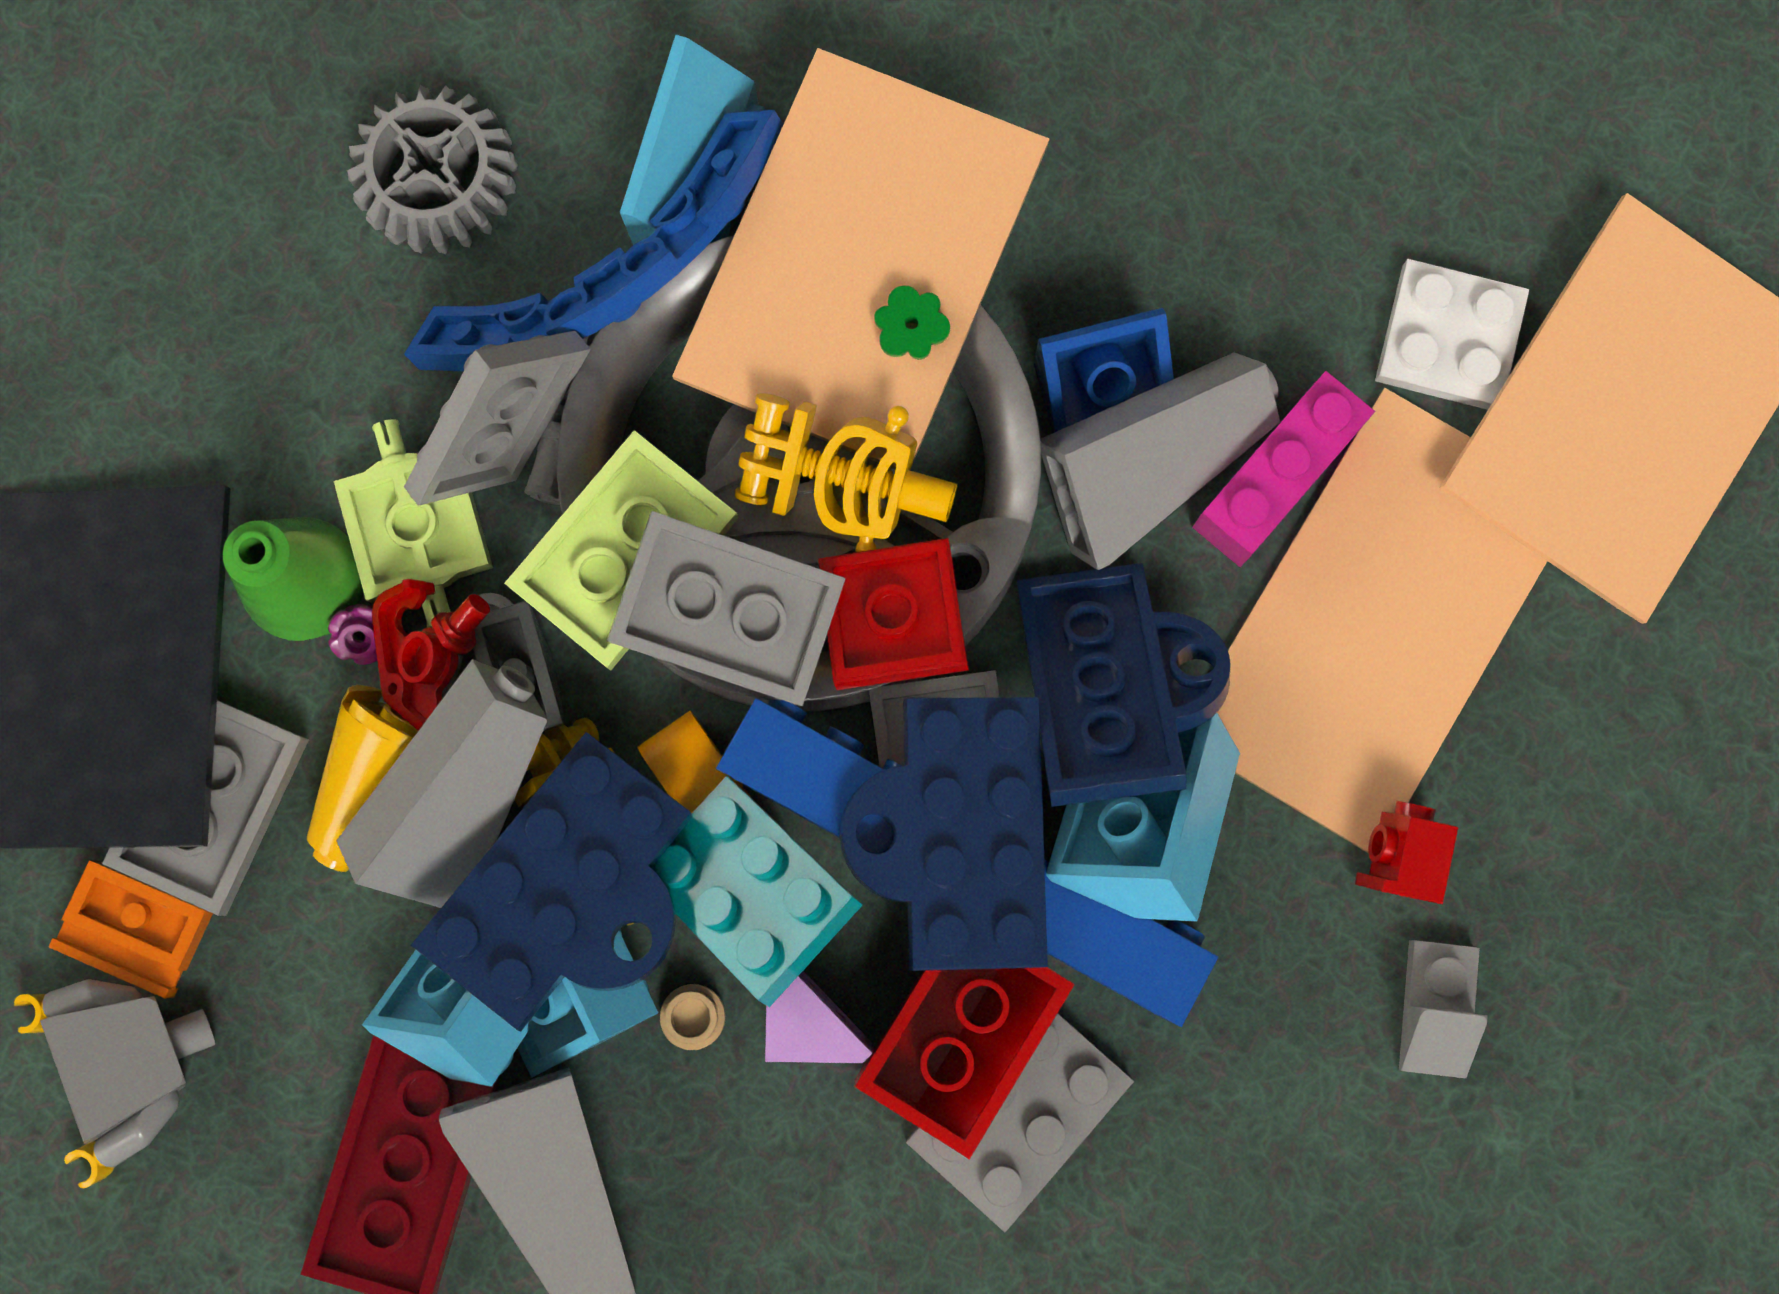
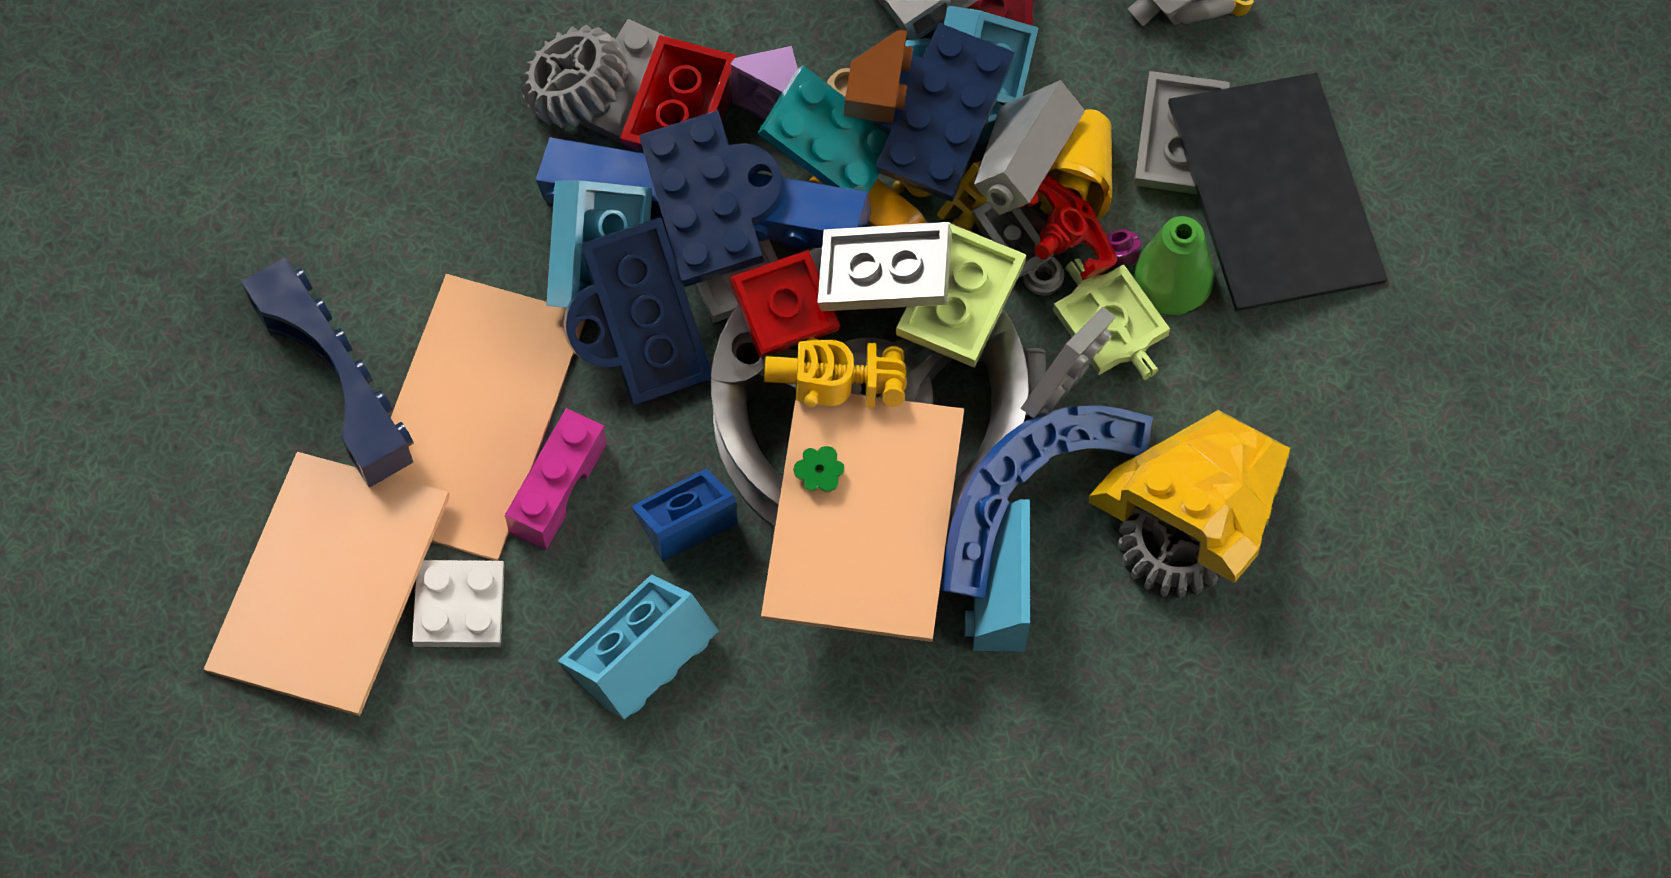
camera: 160 degrees right, 15 degrees down
(130, 930) = (1201, 52): orange plate -> none
(370, 216) = (1207, 482): none -> yellow wedge
(647, 938) = (875, 78): none -> dark orange slope
(1081, 1142) = (574, 76): none -> light grey gear
(1153, 452) = (640, 467): light grey slope -> none
(1218, 203) = (639, 645): none -> medium azure slope
(1410, 854) = (428, 268): red brick -> none
(1439, 1010) = (390, 199): light grey slope -> none
(1633, 854) = (368, 432): none -> dark blue arch

